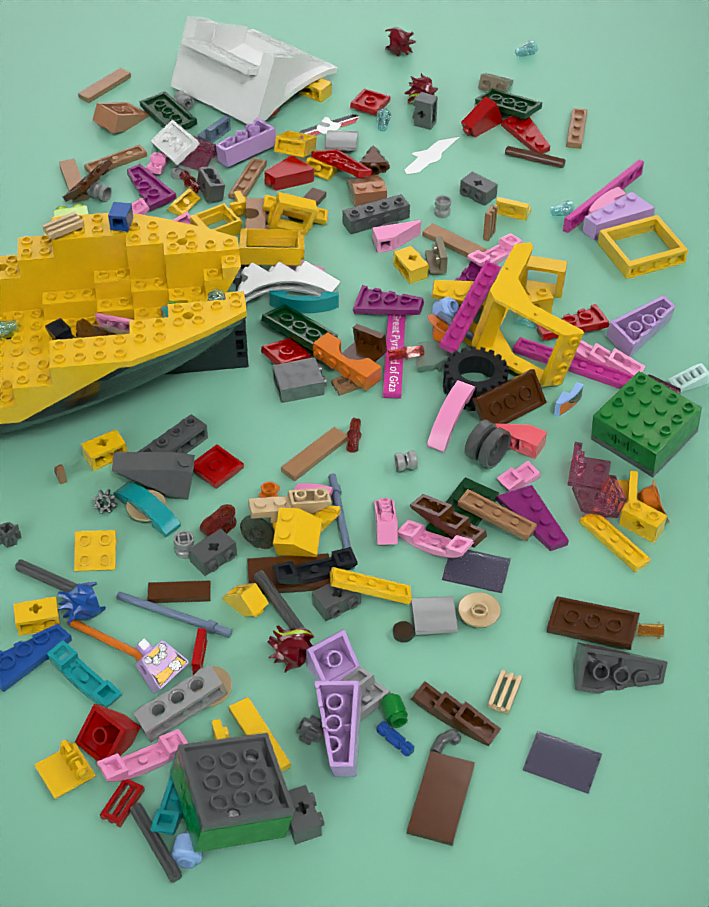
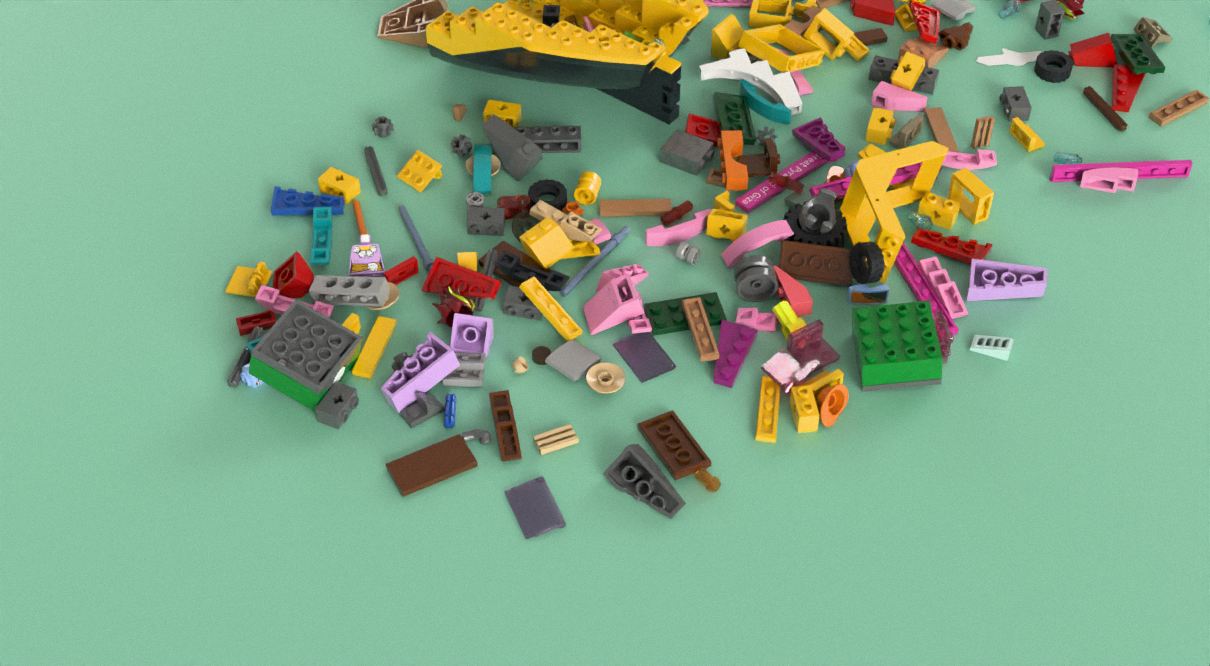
camera: 45 degrees right, 0 degrees up
(80, 602) = (369, 193): blue hair -> none
(179, 591) = (438, 231): reddish brown tile -> none
(217, 466) = (560, 170): red plate -> none
(231, 483) = (550, 187): none -> black tyre
(258, 622) = (470, 283): none -> red wing
(261, 463) = (587, 188): none -> yellow wheel
(338, 326) = (765, 133): none -> dark grey gear
(369, 461) = (660, 236): none -> bright pink slope
(372, 759) = (424, 409): none -> dark grey slope
(383, 405) = (722, 202): none -> yellow bracket
(388, 207) = (908, 71): none -> yellow brick
(394, 710) = (469, 393): green brick -> none
(400, 654) = (520, 365): none -> tan hinge
(408, 417) = (726, 224): none -> yellow brick
(414, 545) = (613, 304): none -> bright pink slope
(442, 207) = (966, 98): light grey wheel -> none
(445, 519) = (658, 307): reddish brown slope -> none
(465, 138) = (1053, 74): none -> black tyre
(478, 359) = (818, 213): none -> dark grey hair
(552, 462) = (787, 318): none -> neon yellow piece
(561, 361) = (875, 261): none -> black tyre
(621, 211) = (1107, 192): lavender wedge -> none
(675, 256) = (1093, 246): yellow window -> none

